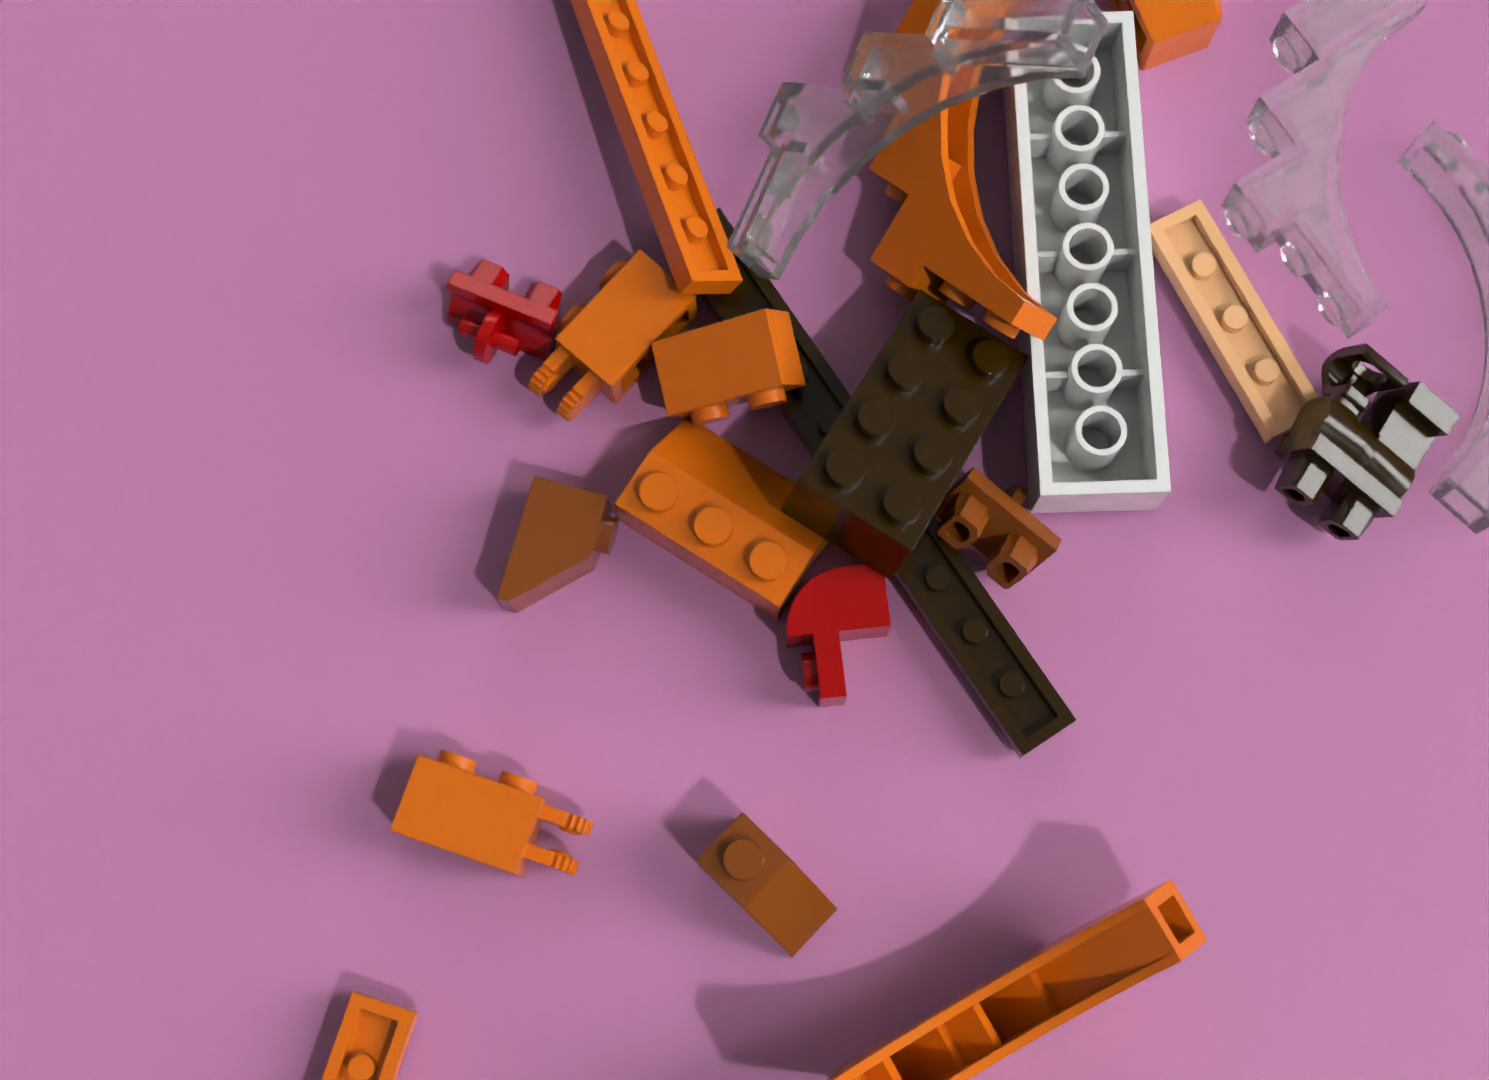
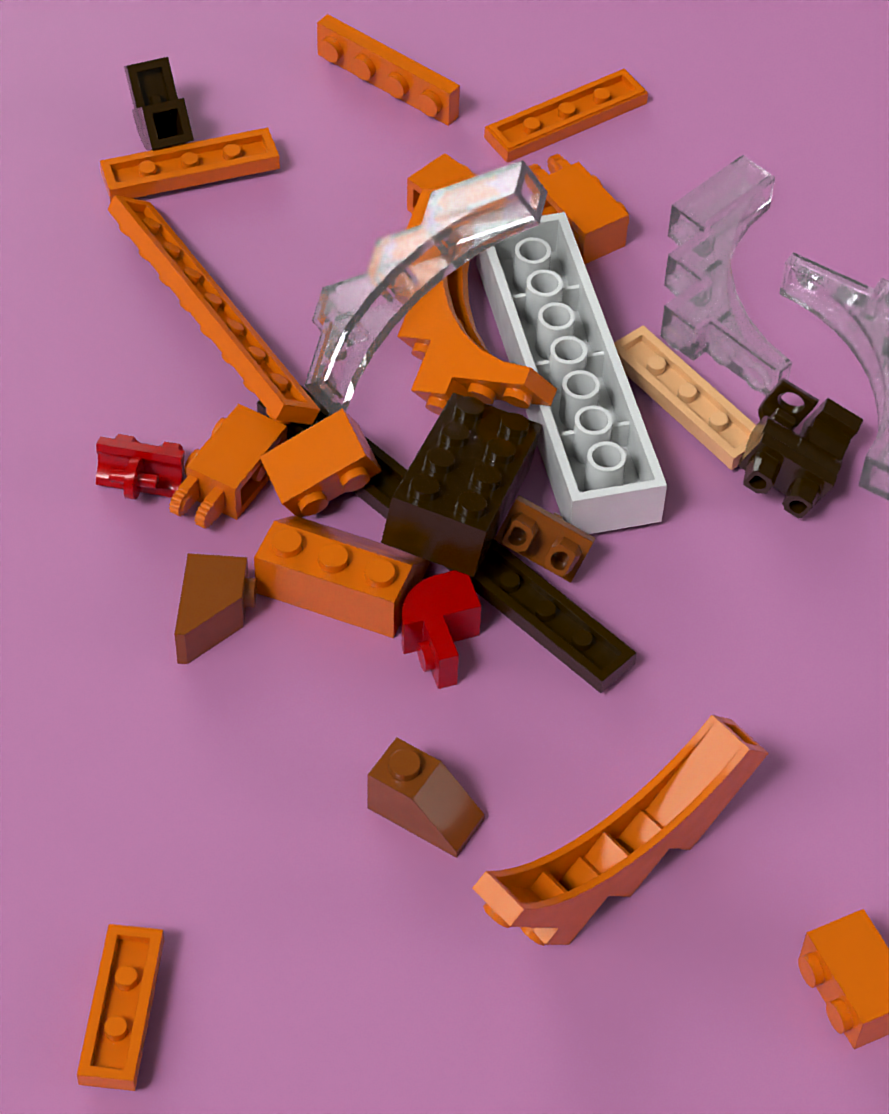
camera: 15 degrees left, 25 degrees down
(482, 816) = (193, 792): orange hinge -> none

